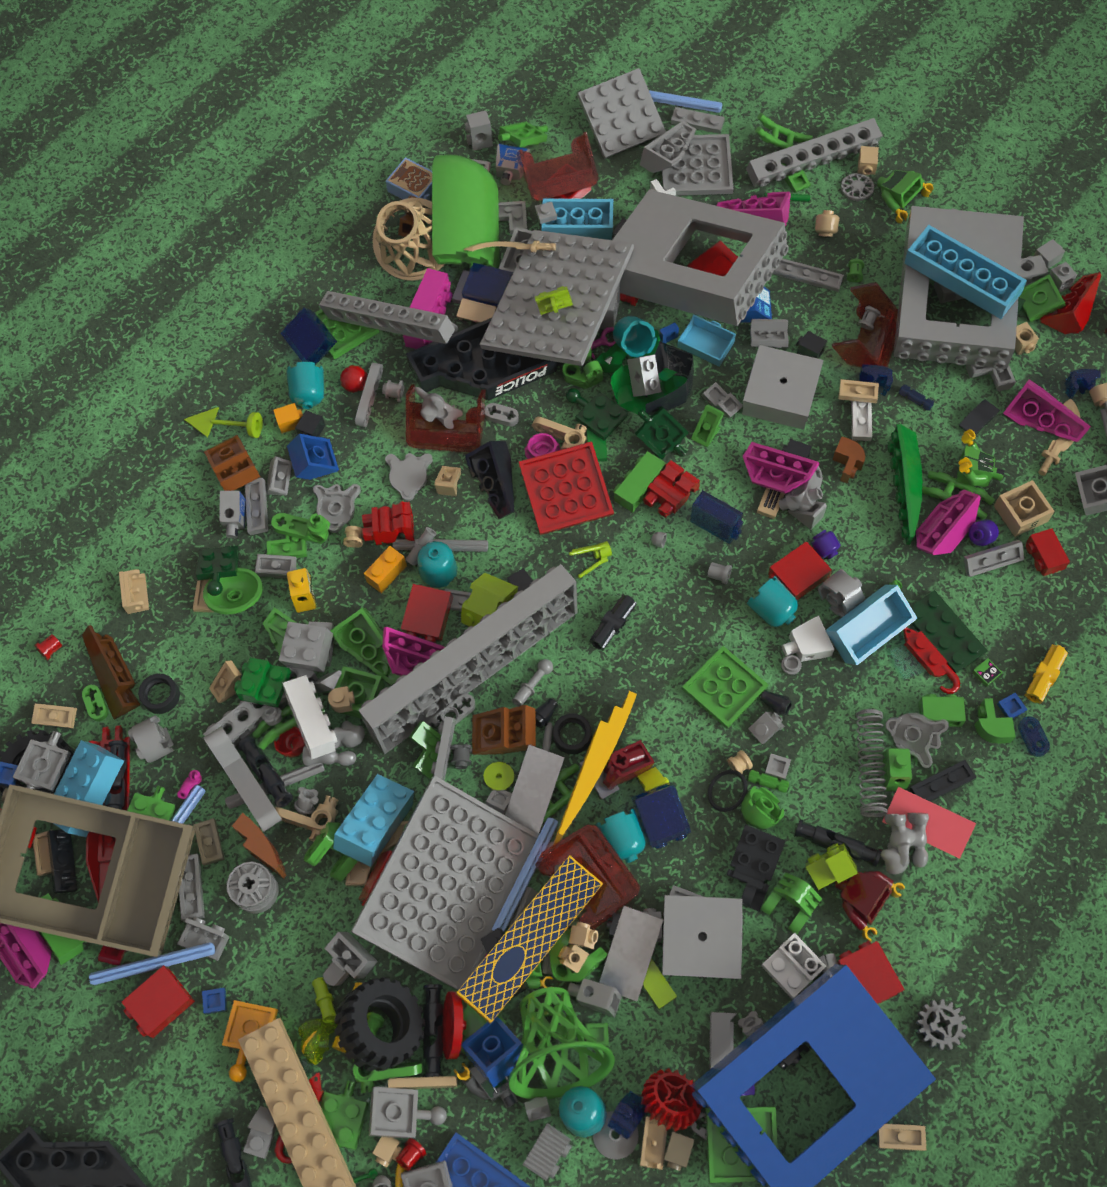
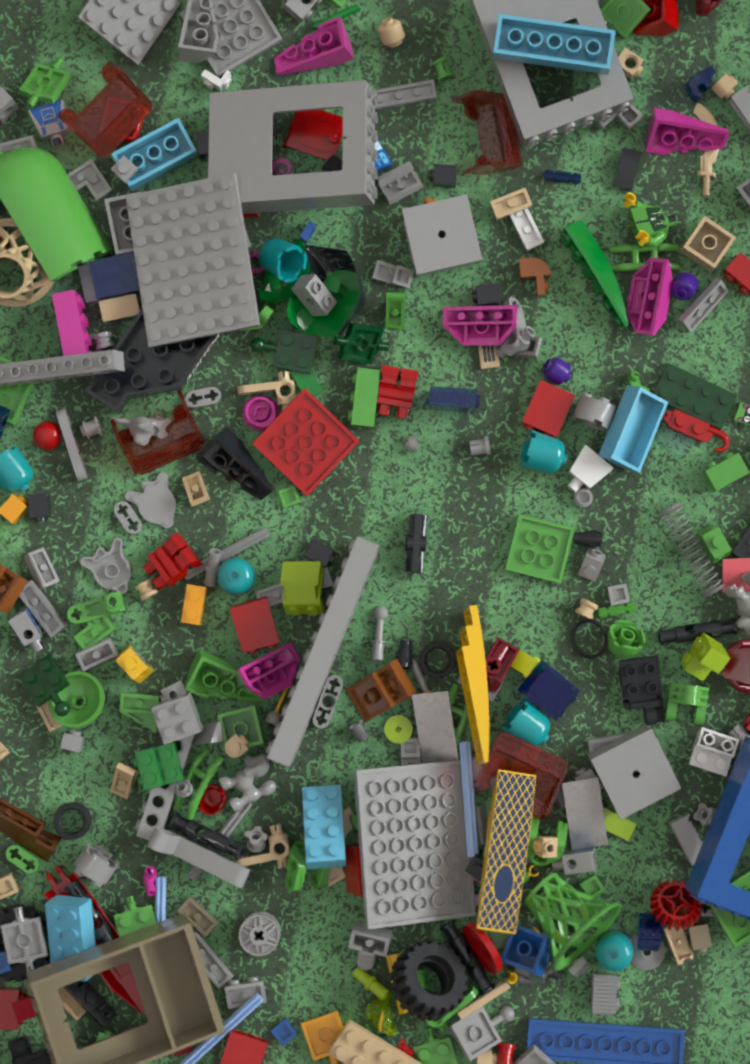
camera: 30 degrees left, 20 degrees up
(206, 626) = (73, 741): none -> light grey plate
(258, 844) = (245, 898): dark orange slope -> none
(309, 717) = (218, 775): white brick -> none
(311, 456) = (60, 534): blue slope -> none
(372, 474) = (124, 520): none -> light grey beam
(427, 739) = (334, 739): bright green plate -> none
(443, 747) = (342, 736): light grey plate -> none
(524, 528) = (288, 496): none -> bright green tile
(536, 245) = (117, 227): tan sword -> none
(553, 300) = (198, 275): lime hips -> none
(583, 936) = (545, 827): tan plate -> none
(599, 550) = (369, 482): lime plant -> none
(706, 340) = (346, 222): medium azure container -> none
(869, 318) = (482, 118): light grey bush -> none
(877, 374) = (515, 177): clear blue hand -> none
(917, 734) = (716, 505): light grey tile -> none

